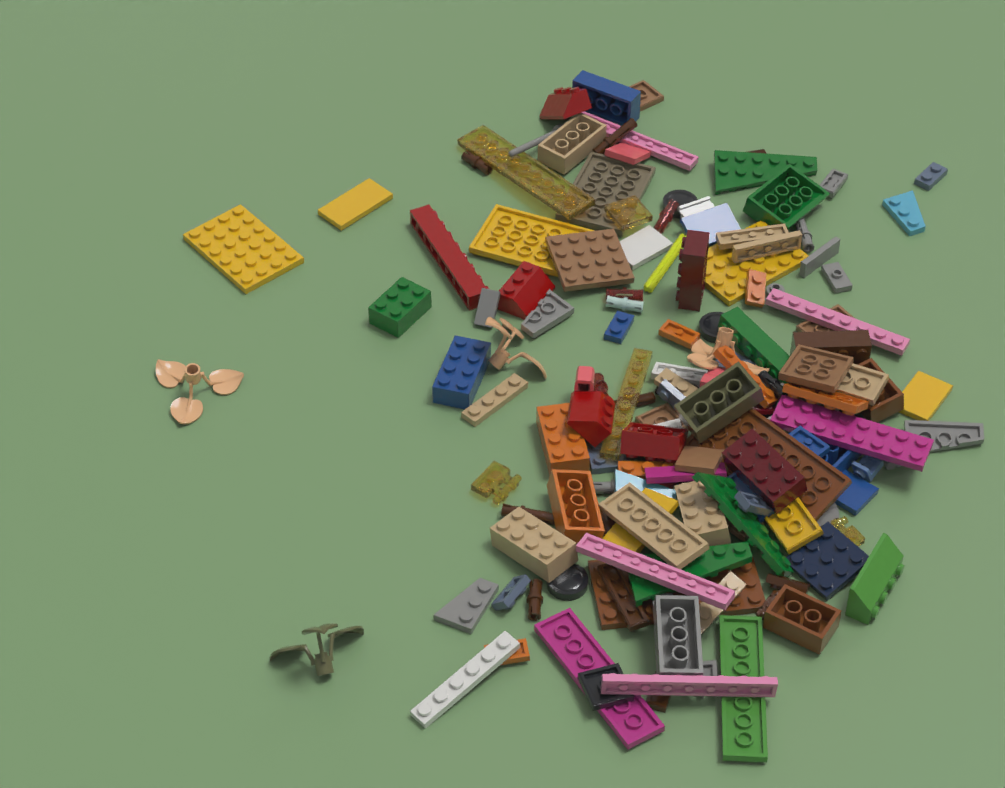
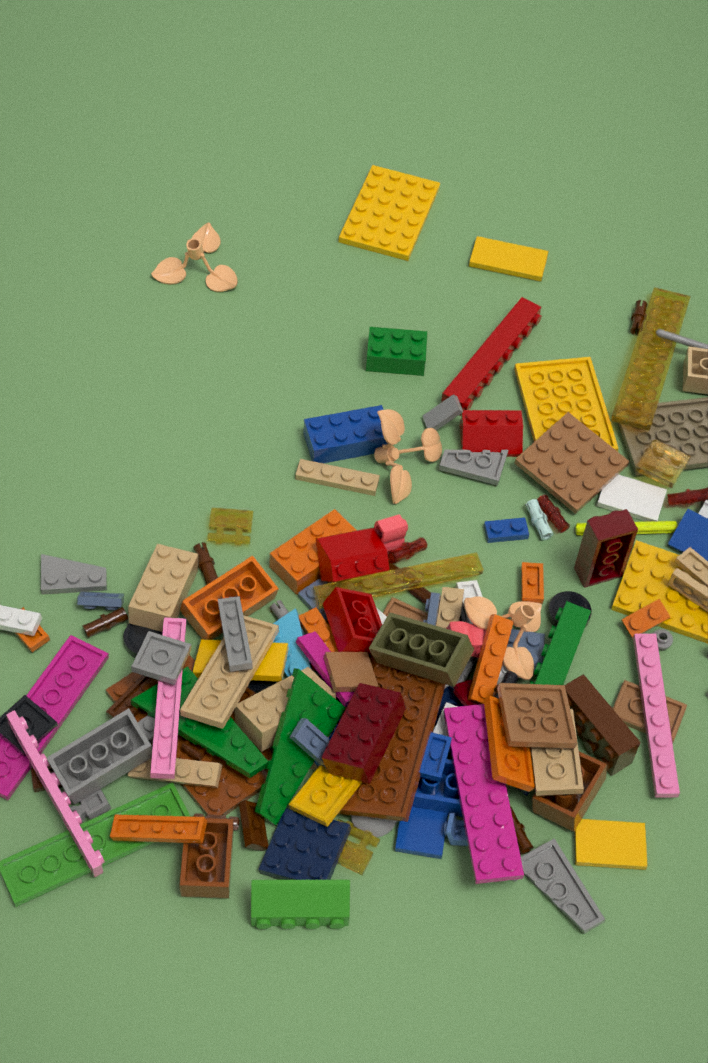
camera: 55 degrees right, 10 degrees up
(621, 556) = (161, 658): none -> light grey plate
(624, 506) = (235, 634): none -> light grey plate
(765, 631) = (158, 828): none -> orange plate

